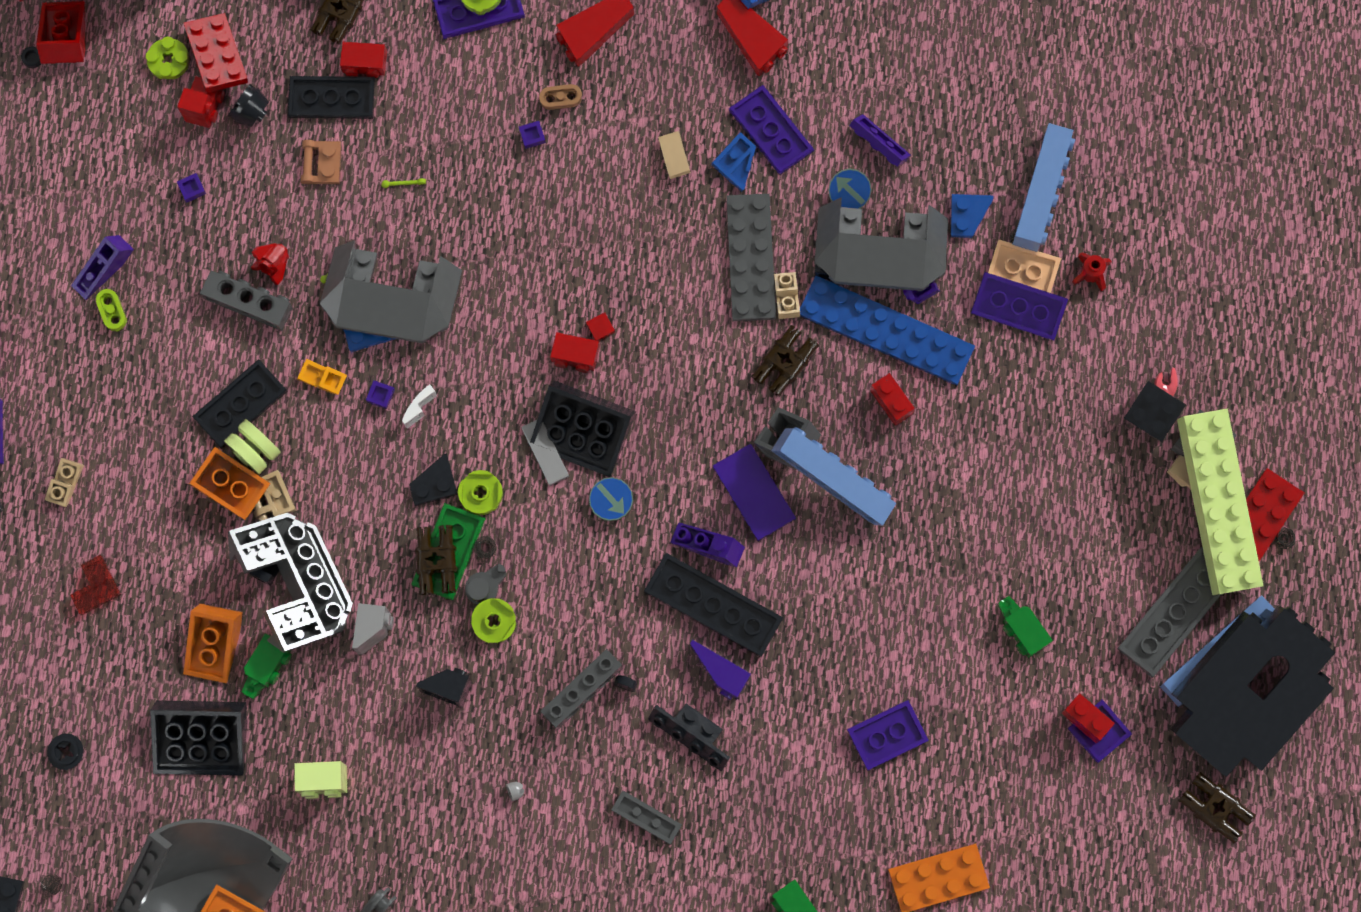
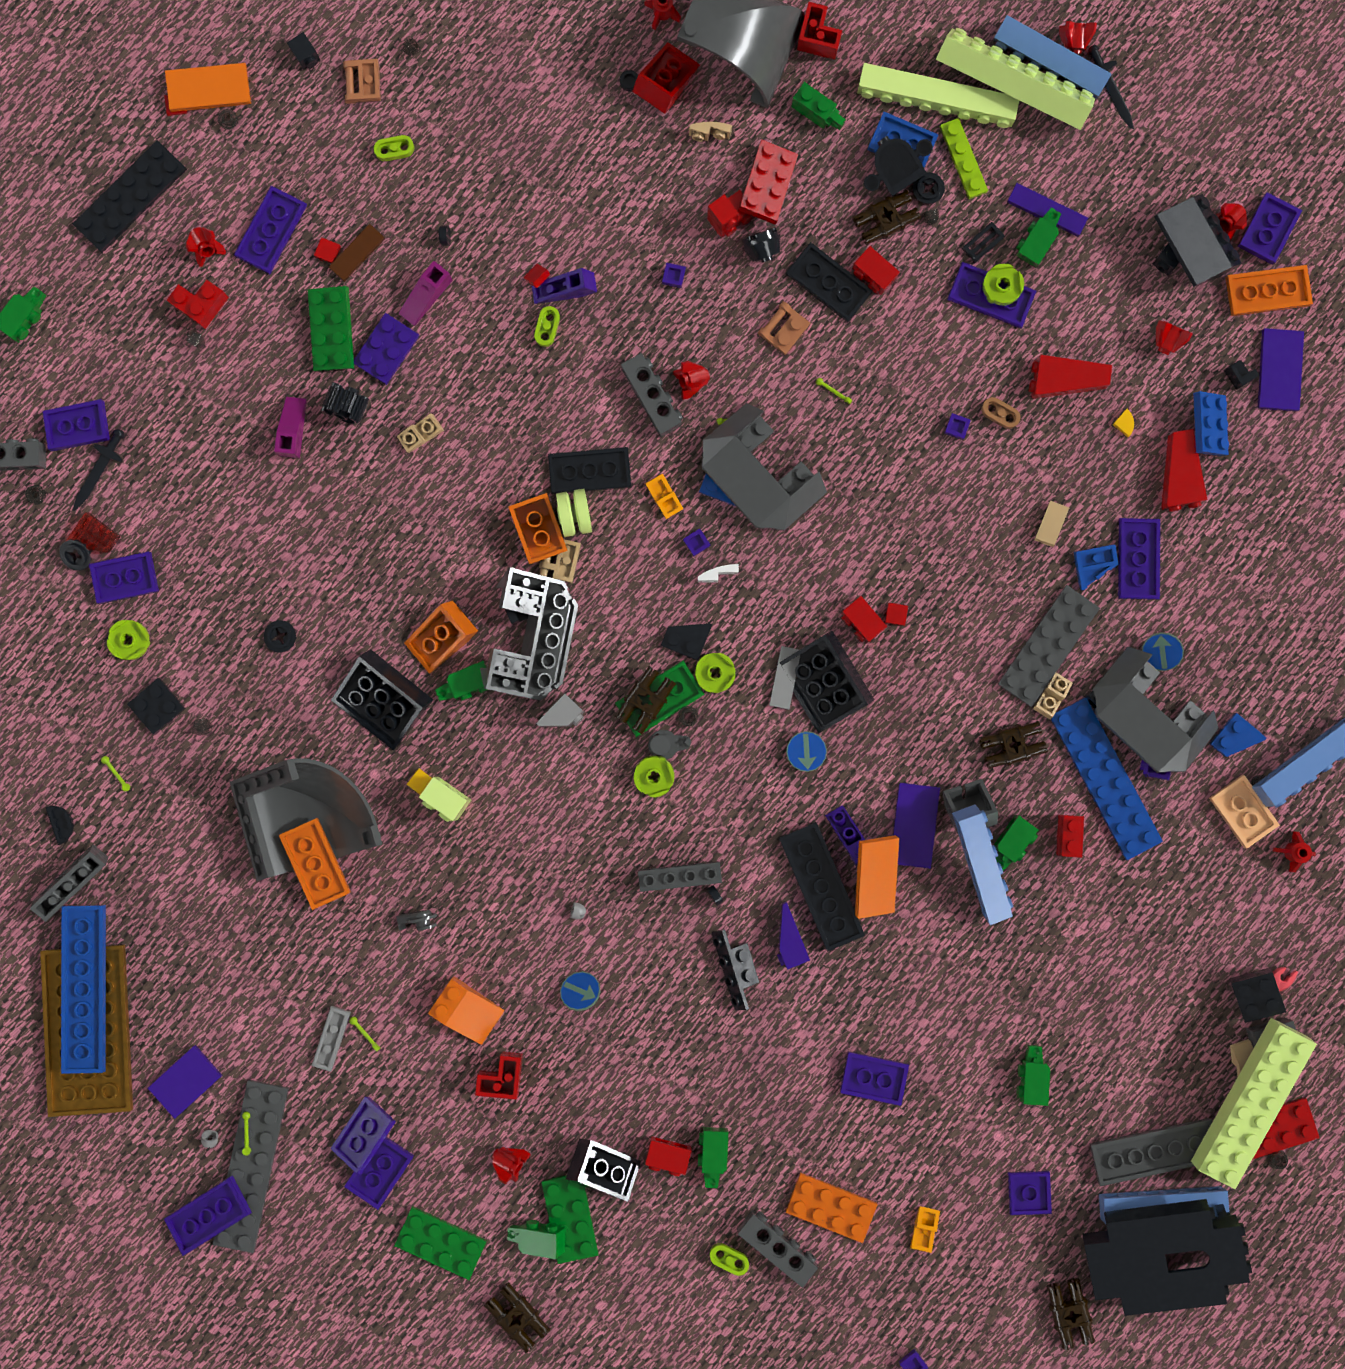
camera: 30 degrees right, 10 degrees up
(70, 274) = (537, 275): none -> red tile
(101, 587) = (389, 535): clear red plate -> none
(127, 53) = (702, 131): none -> tan slope
(167, 70) = (731, 147): lime plate -> none
(286, 785) = (419, 781): none -> yellow tile
(447, 686) = (584, 801): black slope -> none
(569, 858) = (580, 991): none -> blue piece
(646, 817) = (656, 1003): dark grey plate -> none
(672, 29) = (1125, 423): none -> yellow tile
(752, 557) = (876, 876): none -> orange tile
(848, 439) = (1014, 841): none -> green hinge
(879, 140) = (1214, 630): dark purple plate -> none
(1019, 306) = (1219, 837): dark purple tile -> none
(1034, 833) = (924, 1229): none -> light orange slope
(1088, 718) = (1029, 1181): red brick -> none

